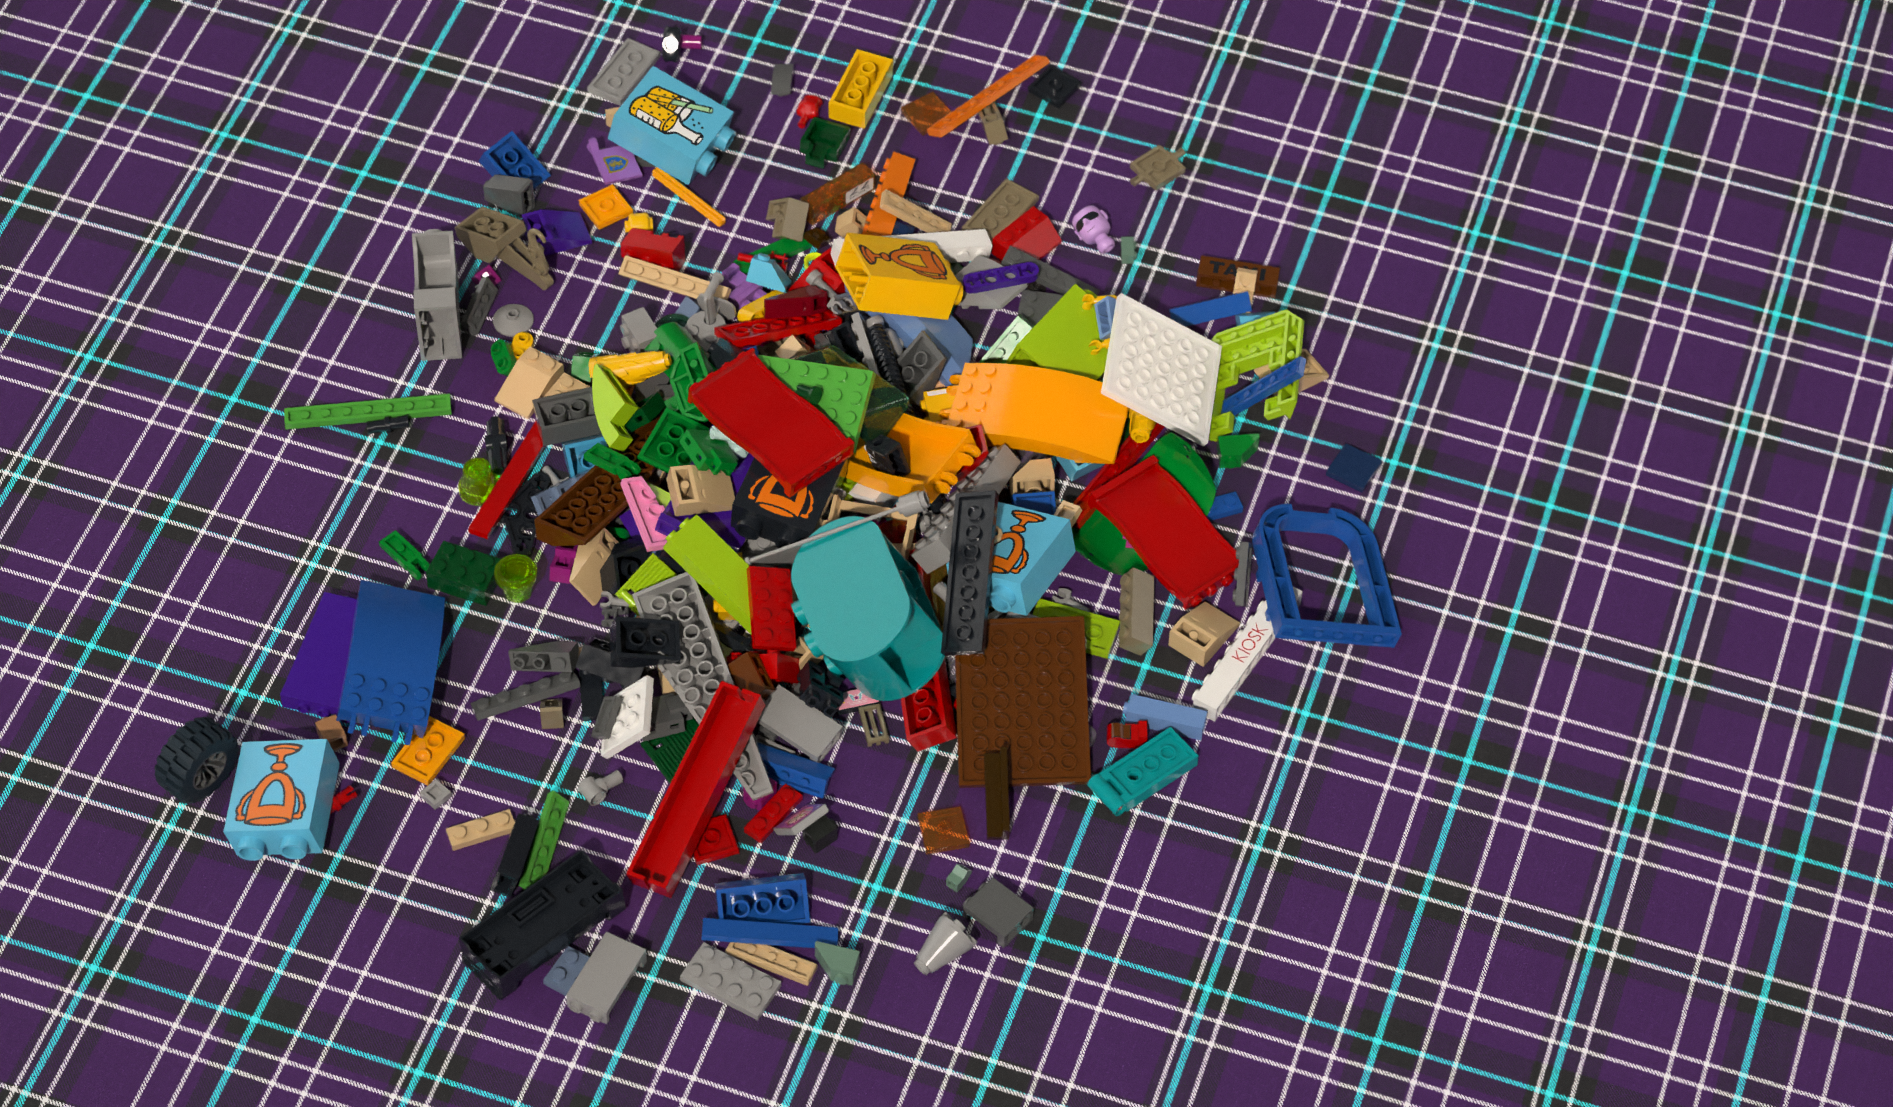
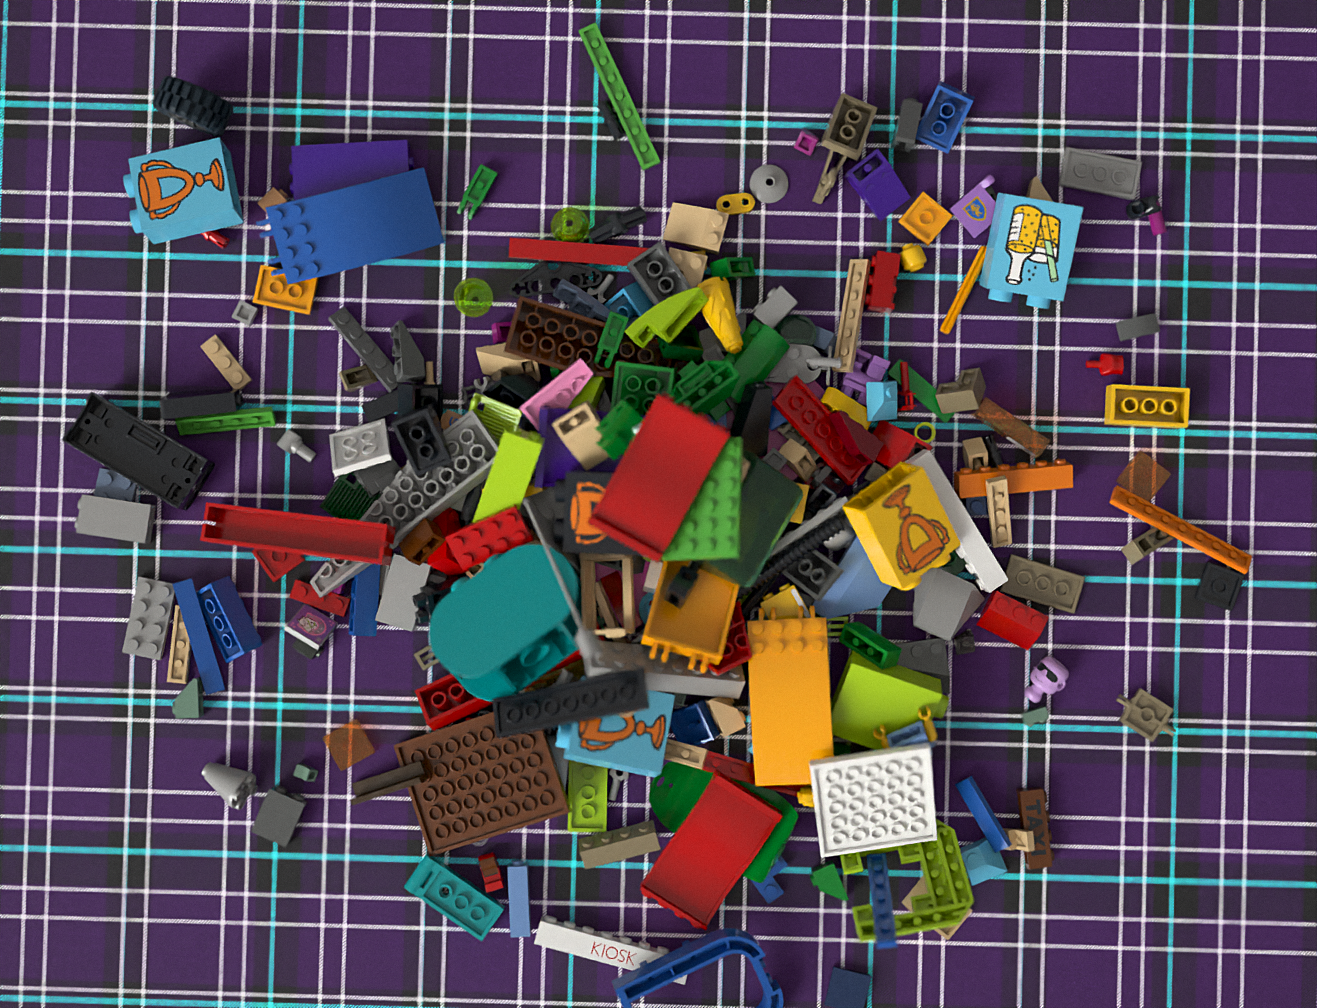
camera: 80 degrees right, 35 degrees up
(436, 295) = (746, 110): light grey brick -> none
(463, 573) = (471, 249): dark green brick -> none
(478, 306) = (768, 148): dark grey plate -> none
(503, 357) = (717, 193): green plate -> none
(606, 717) = (361, 428): dark grey tile -> none
(812, 394) = (701, 501): dark green piece -> none
(817, 238) = (951, 426): dark brown plate -> none
(823, 142) = (1071, 392): dark green piece -> none
(841, 300) = (866, 474): light grey bar -> none
(999, 275) = (944, 615): dark purple beam -> none
(1048, 275) = (972, 656): dark grey plate -> none
(1202, 633) = (619, 908): tan slope -> none
(1242, 574) = (682, 928): dark grey plate -> none

